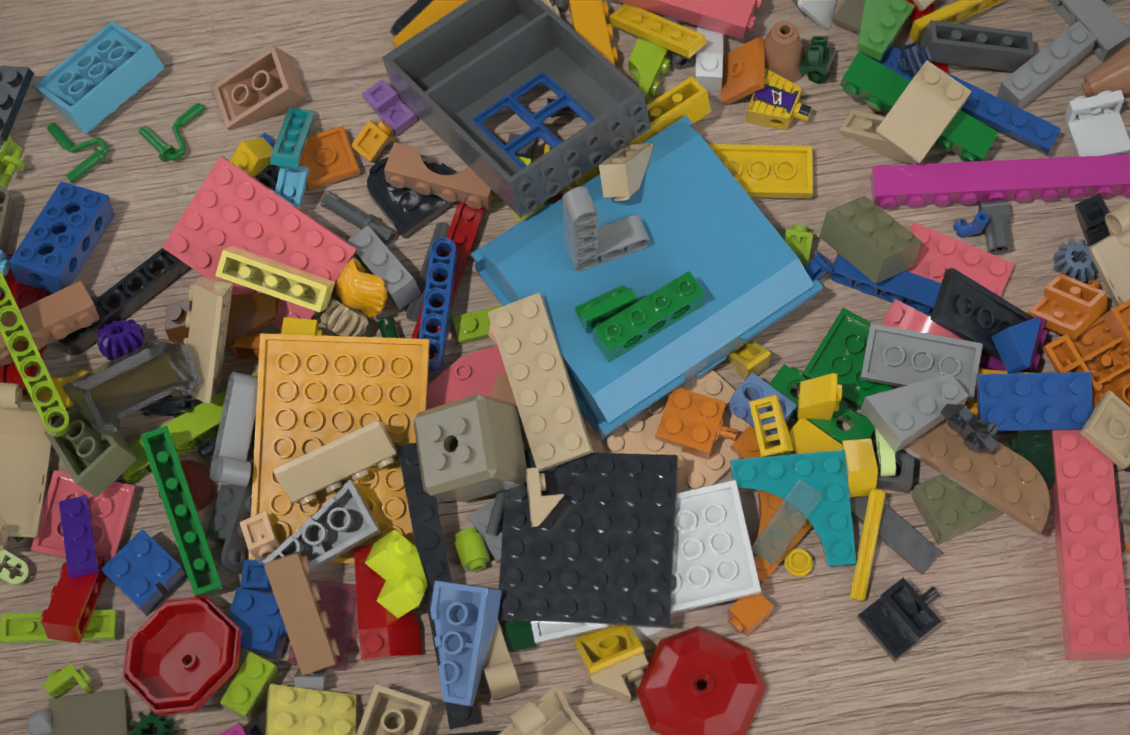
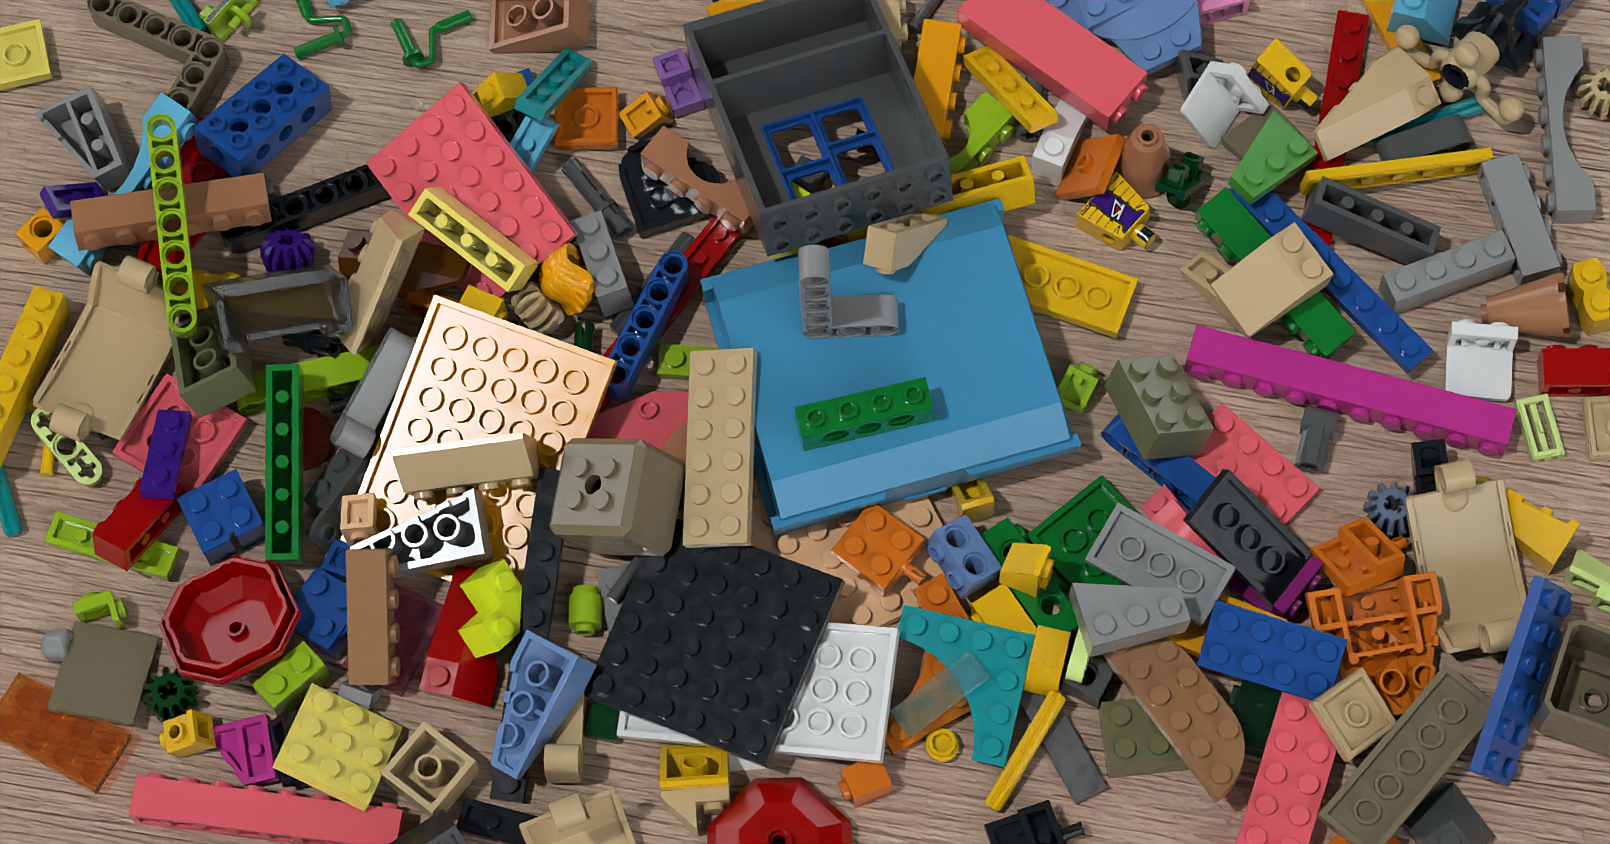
camera: 20 degrees right, 0 degrees up
(539, 505) = (669, 585): tan slope -> none
(604, 307) = (819, 387): green bracket -> none
(780, 424) = (949, 581): yellow slope -> none
(818, 266) = (1087, 420): blue bush -> none
(913, 57) = (1287, 211): dark blue gear -> none
(971, 429) = (1181, 662): black plate -> none
(976, 226) = (1291, 431): blue arm -> none
(1017, 345) = (1276, 579): blue slope -> none

